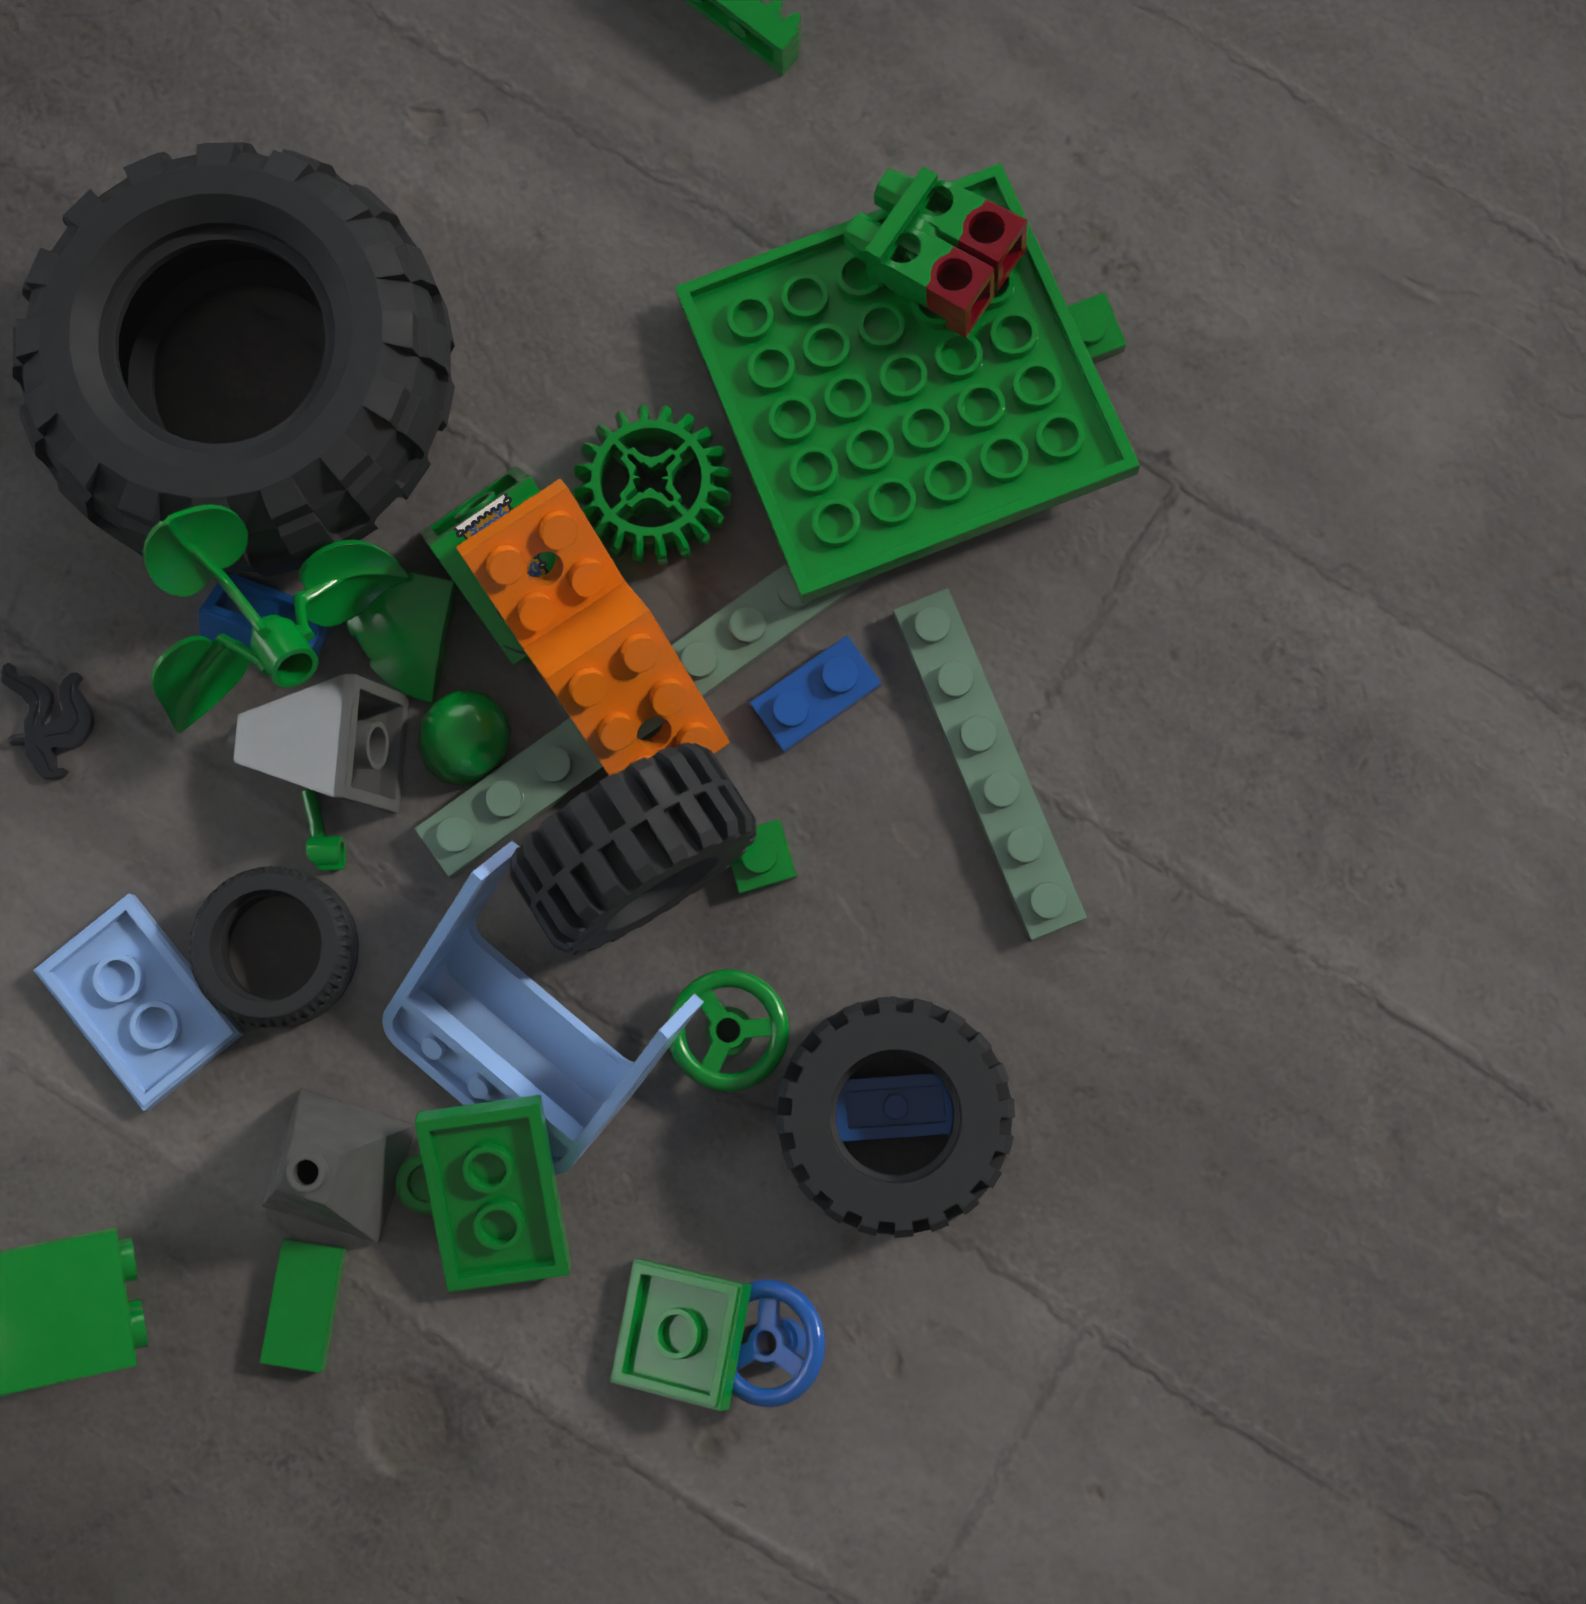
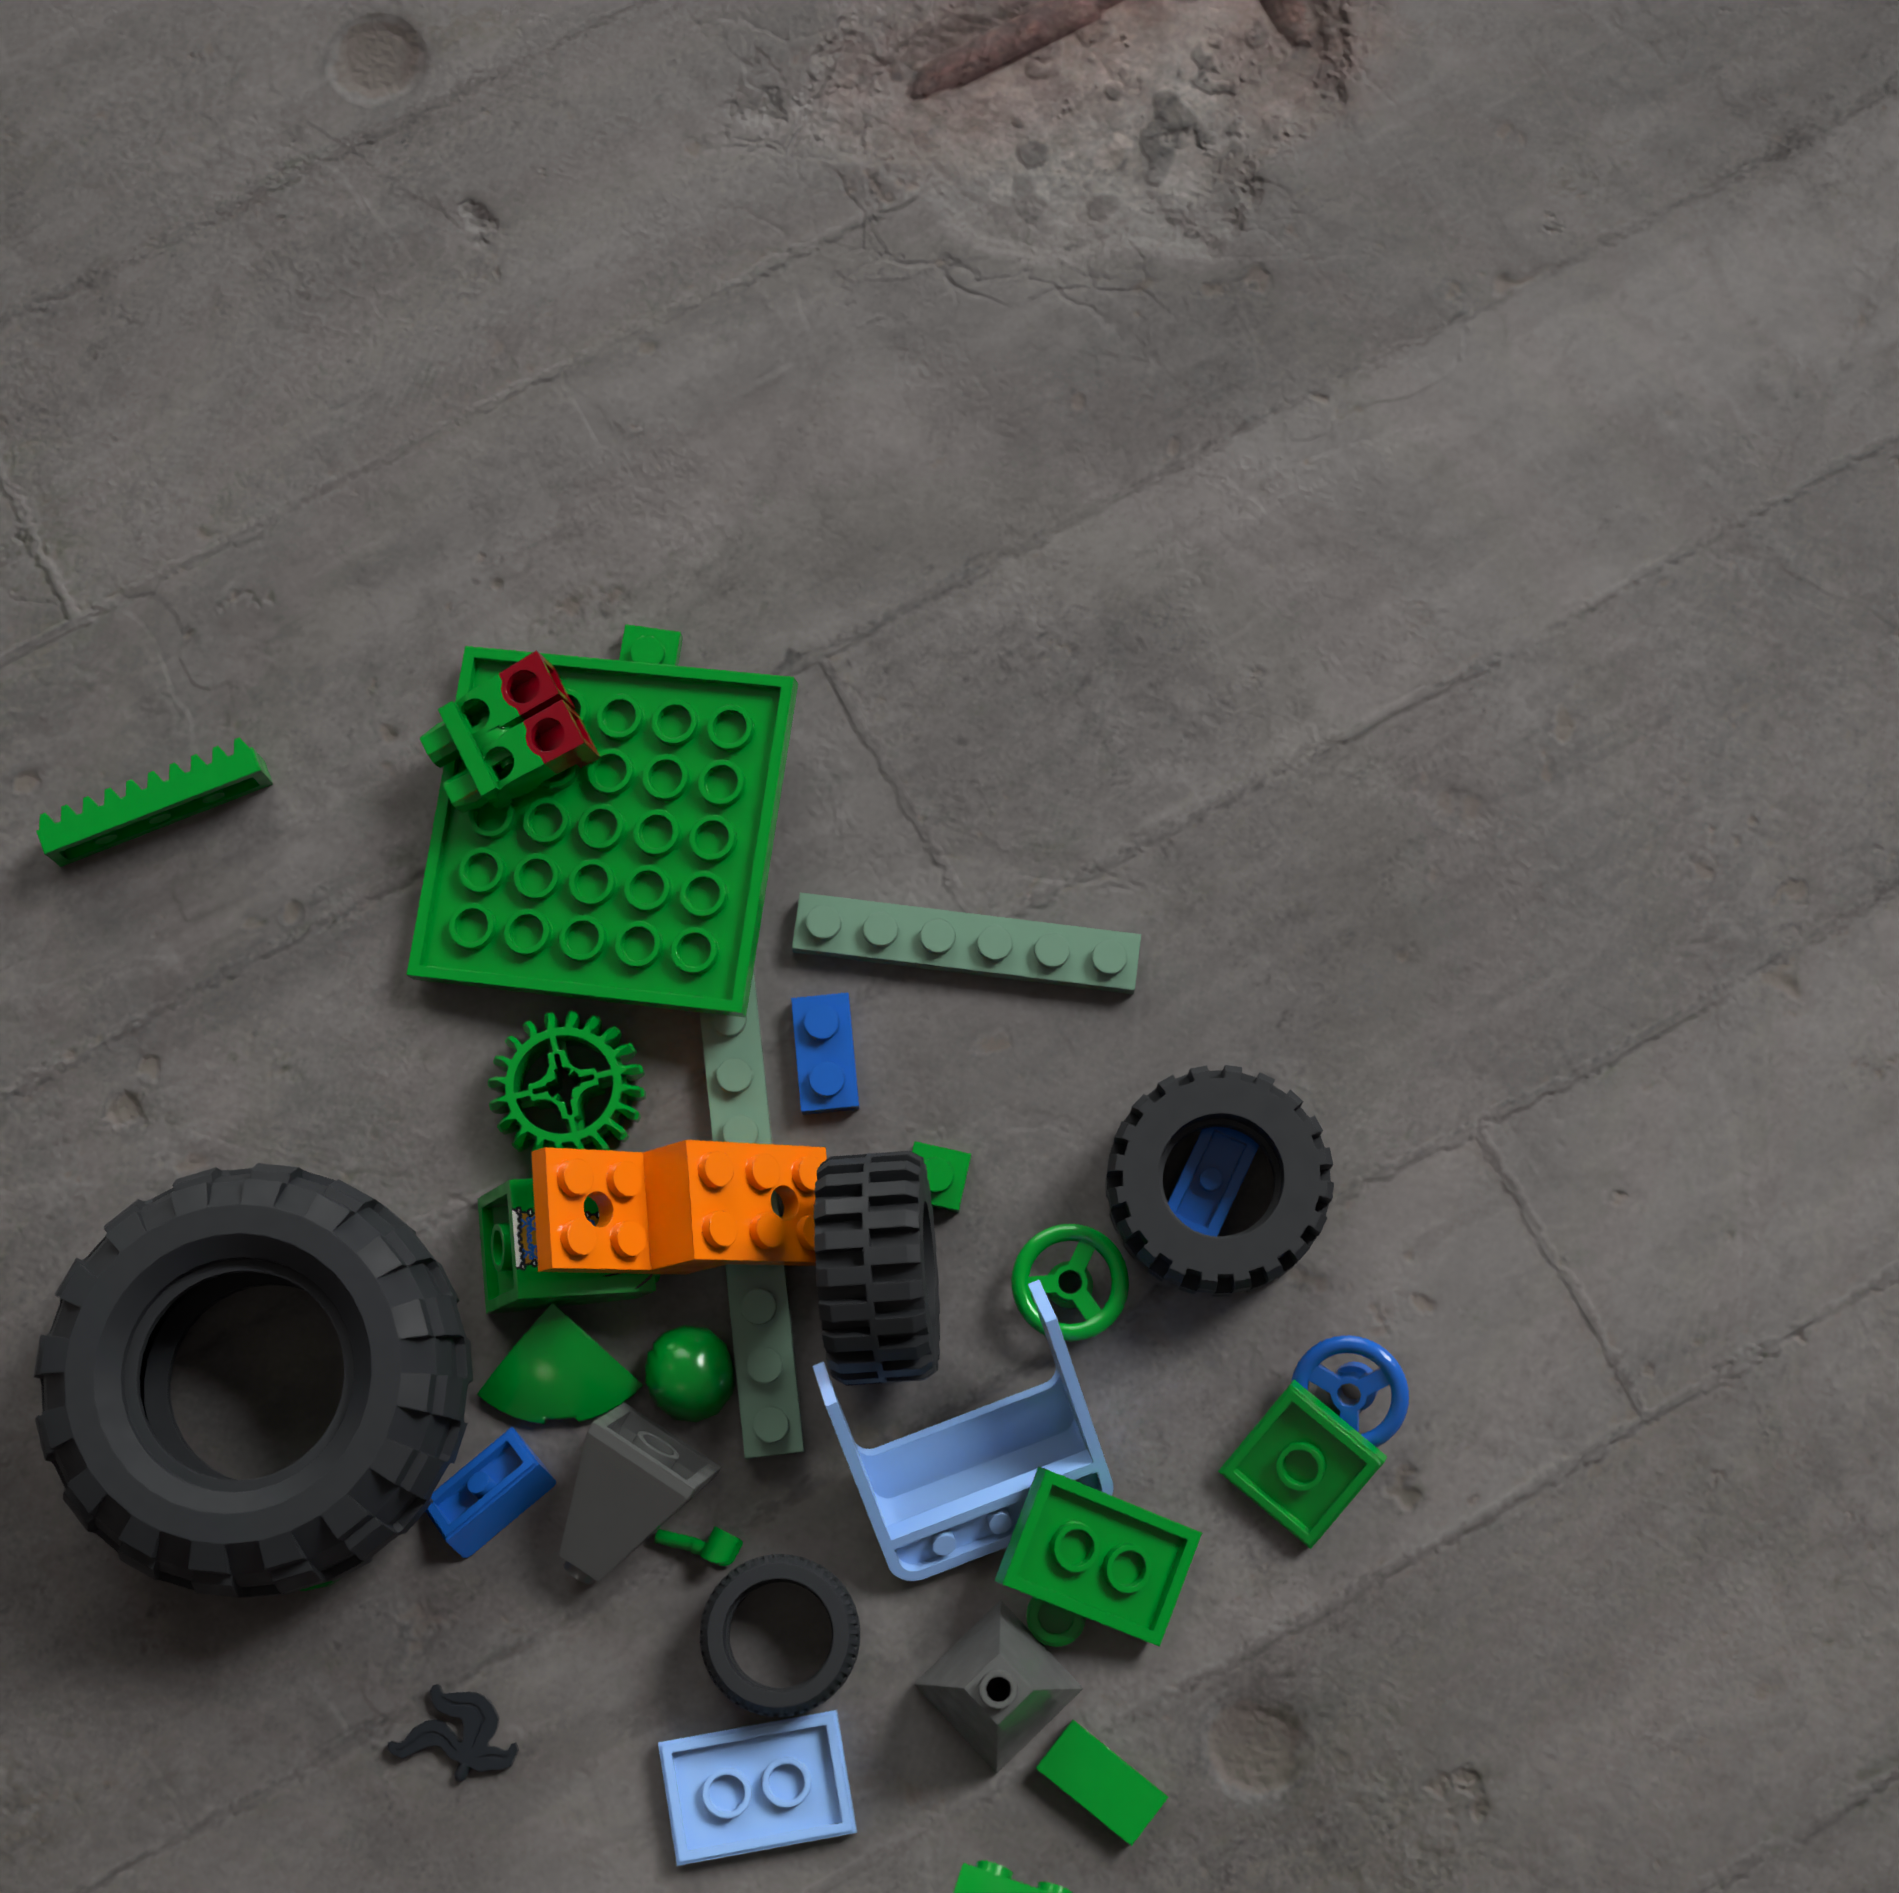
camera: 60 degrees left, 5 degrees down
(201, 542) = (414, 1497): green plant -> none

